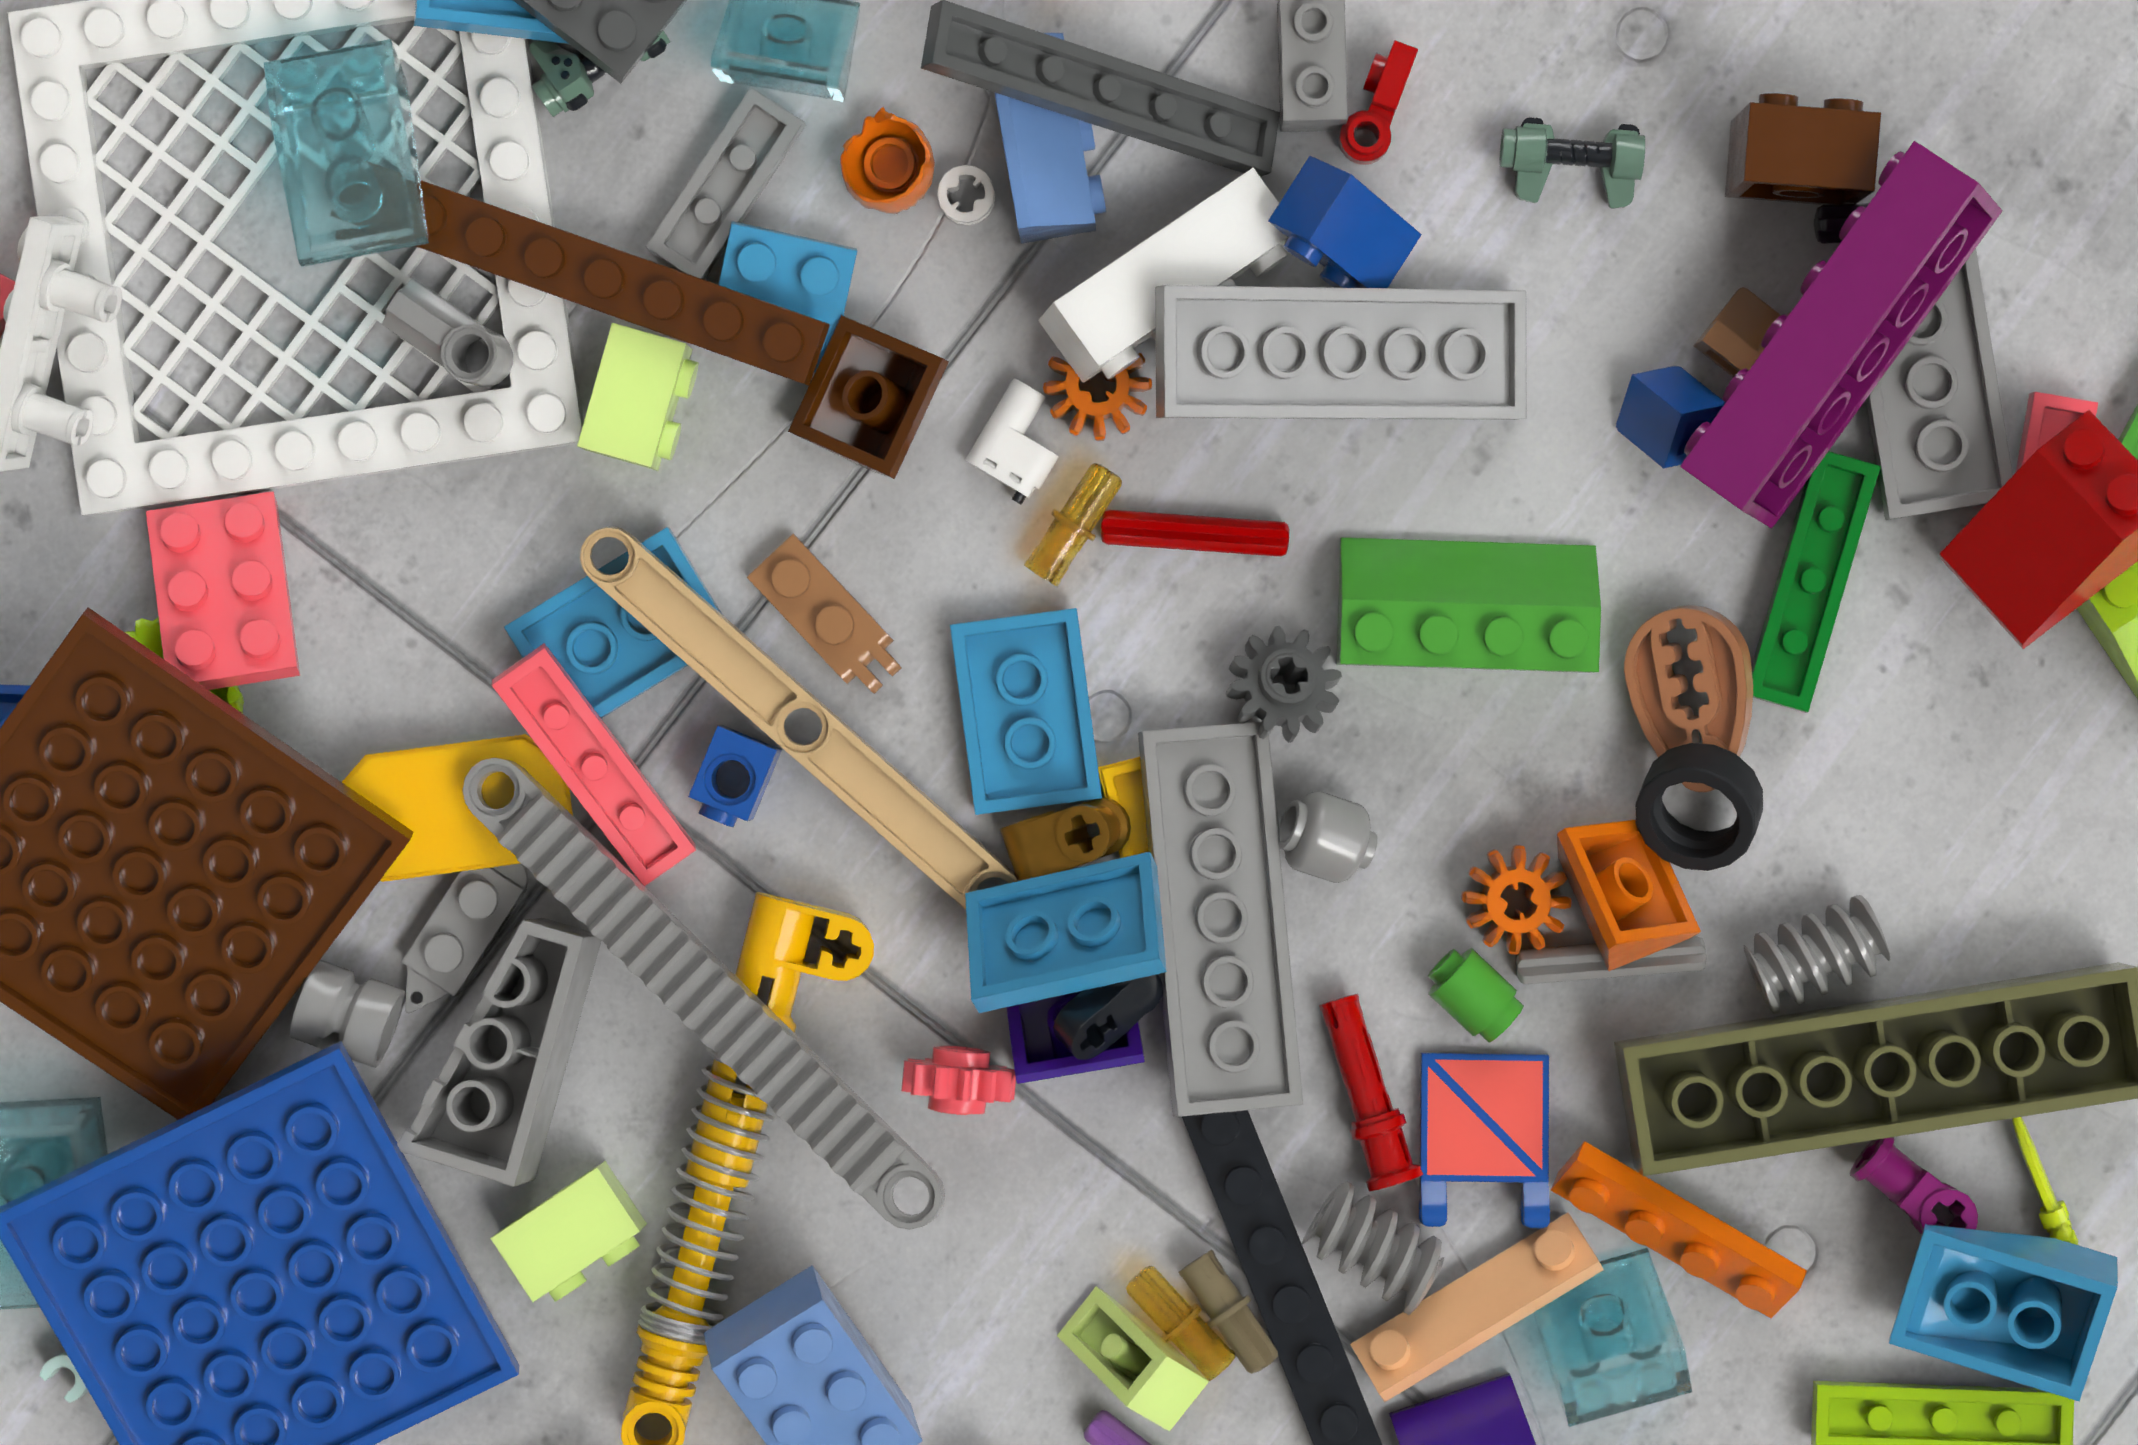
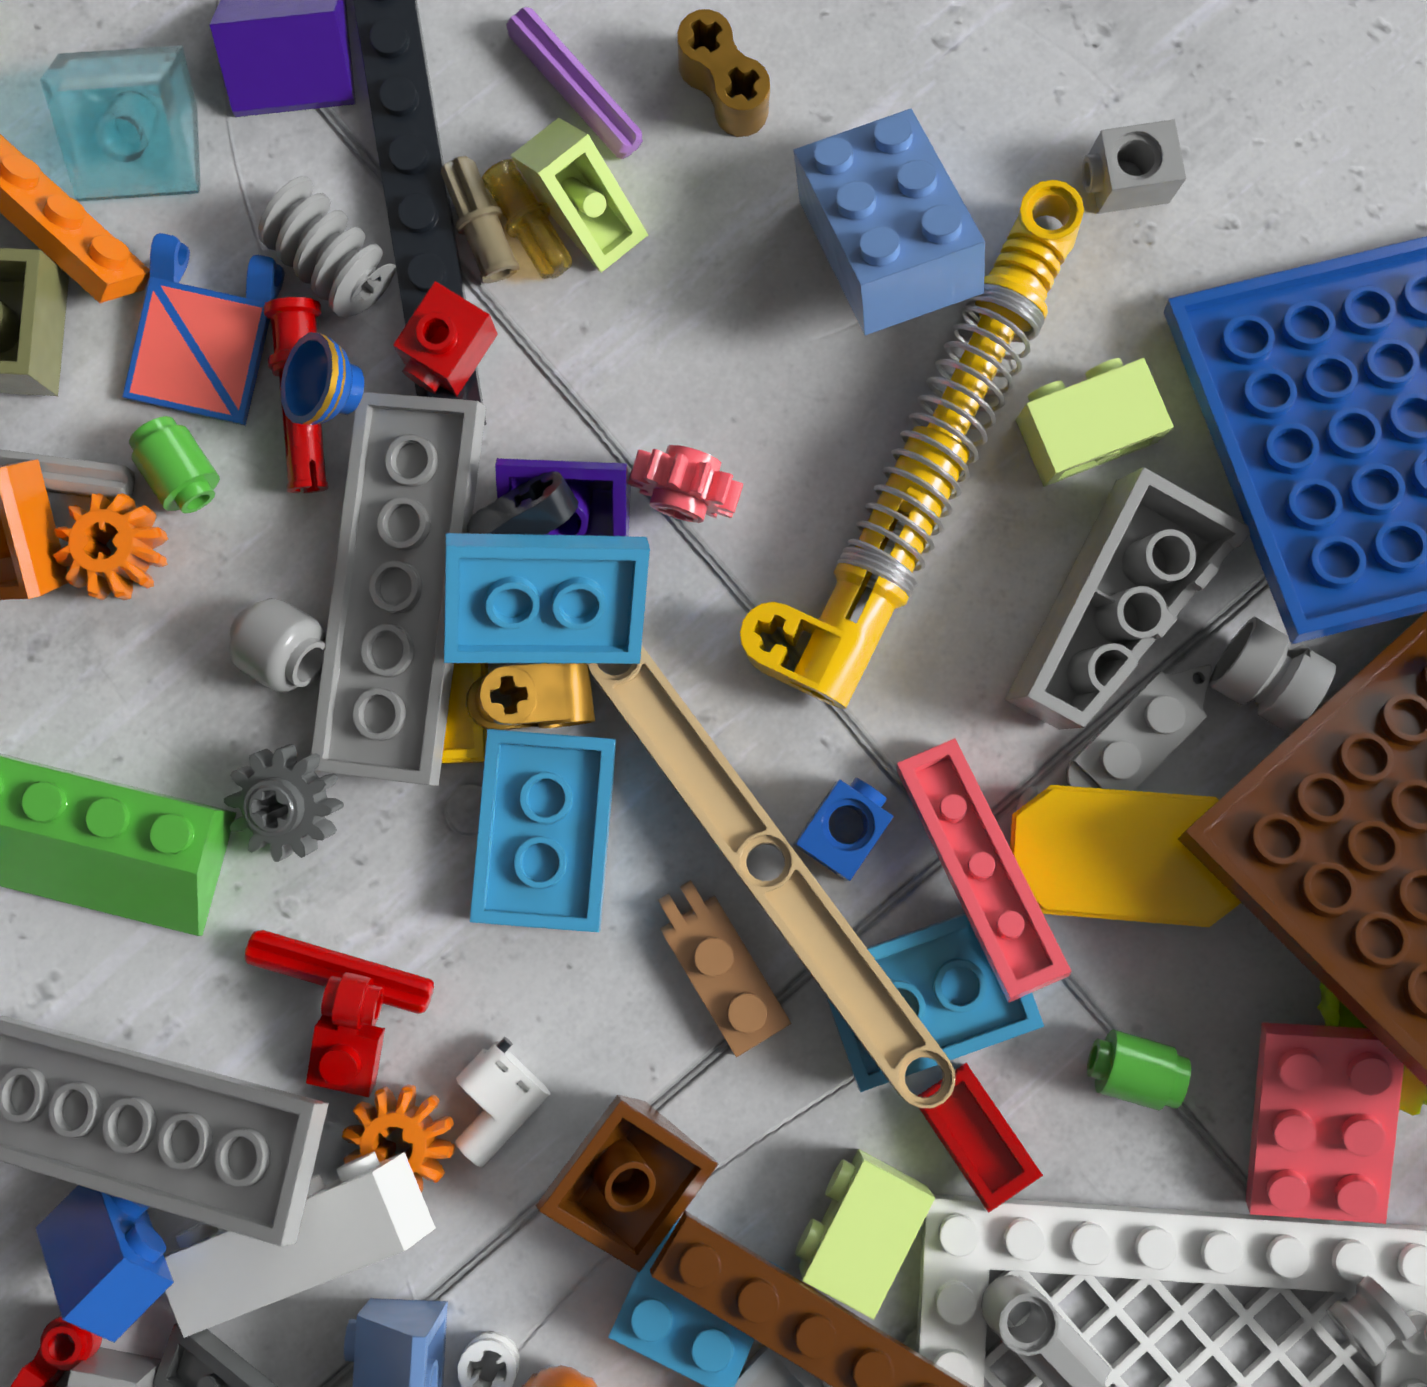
camera: 170 degrees left, 5 degrees down
(147, 420) = (1371, 1320): none -> light grey wheel
(405, 604) = (1139, 1070): none -> bright green brick
(544, 505) = (980, 1141): none -> red tile
(703, 993) = (919, 617): light grey gear -> none
(1074, 524) = (454, 1006): clear yellow axle -> none
(1169, 462) = (345, 1038): none -> red plate
(1226, 1170) = (444, 340): none -> red brick
(1341, 1104) = (319, 381): none -> blue piece
(1476, 1307) = (242, 175): light nougat plate -> none

